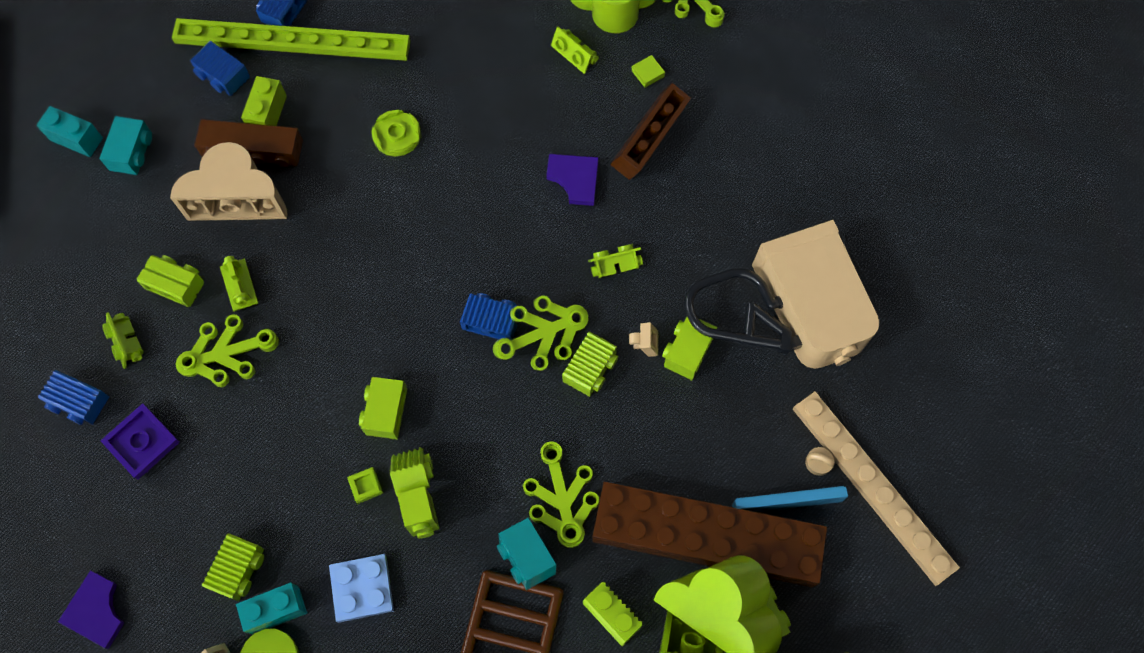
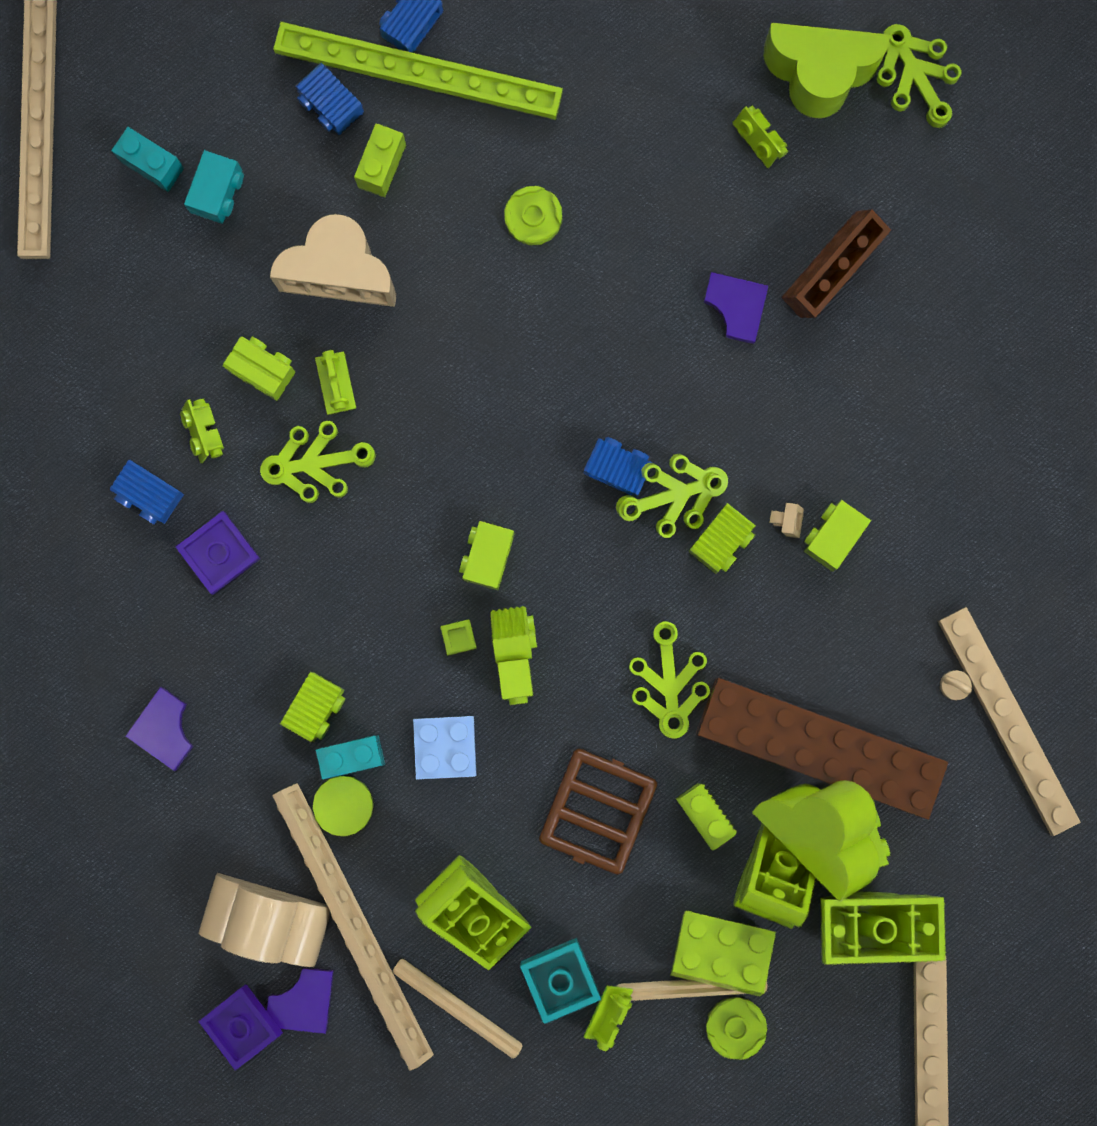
camera: 10 degrees right, 15 degrees up
(263, 142) = (368, 206): reddish brown brick -> none
(526, 554) = (624, 740): teal brick -> none
(625, 257) = (780, 416): lime hinge -> none
(648, 71) = (845, 178): lime tile -> none
(792, 499) = (921, 724): dark azure tile -> none
(813, 292) = (987, 498): tan piece -> none

